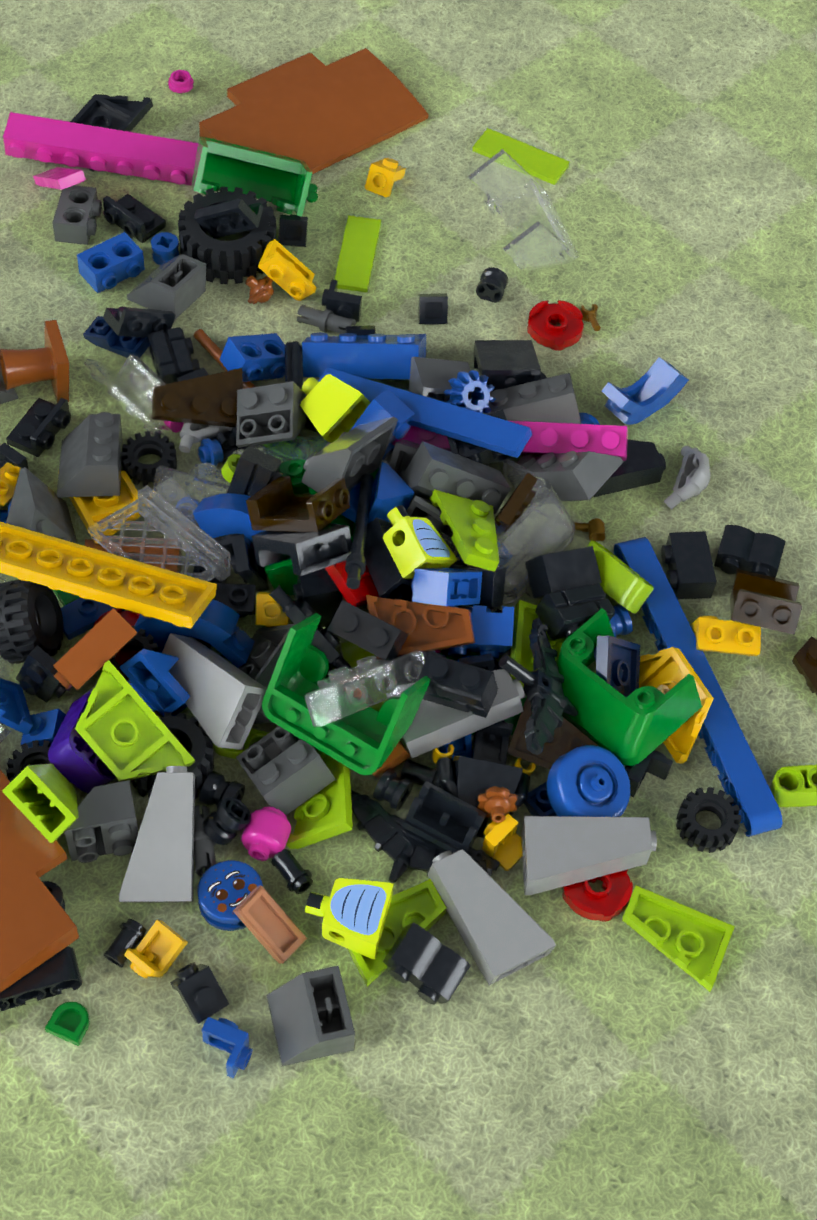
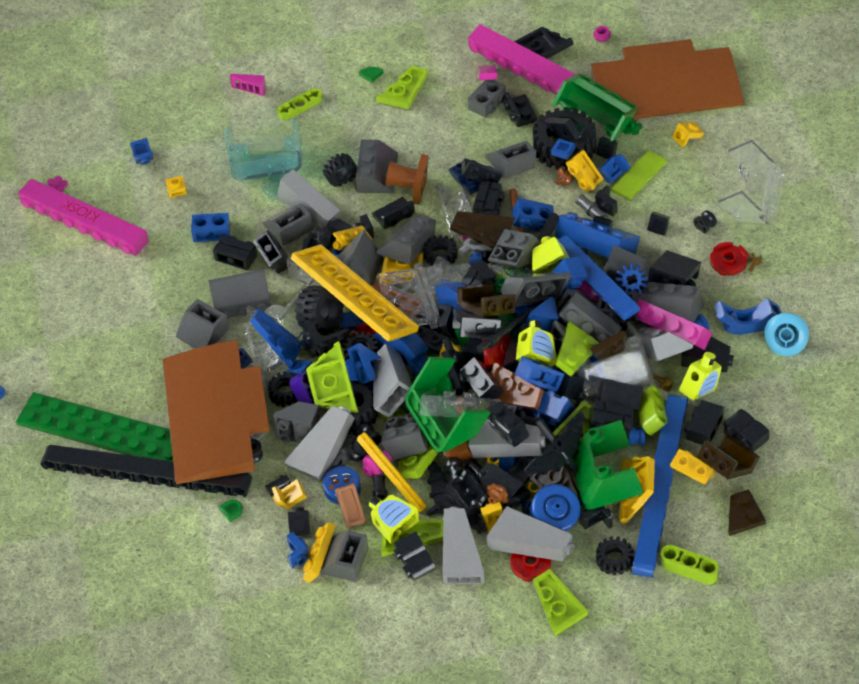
camera: 40 degrees right, 5 degrees down
(44, 799) = (271, 394): lime slope -> none
(94, 650) = (345, 331): dark orange slope -> none
(111, 262) = (489, 132): blue brick -> none
(164, 247) = (525, 133): blue wheel -> none
(246, 247) = (563, 149): none -> blue tile
(267, 1030) = (318, 551): none -> yellow plate
(305, 838) = (391, 472): none -> yellow axle
(320, 252) = (614, 167): none -> blue bracket
(533, 160) = (785, 148): lime piece -> none
(618, 663) = (613, 453): dark blue plate -> none
(650, 500) = (701, 377): none -> neon yellow torso
(692, 476) = (744, 377): light grey piece -> none
(706, 398) = (786, 334): none -> medium azure hat

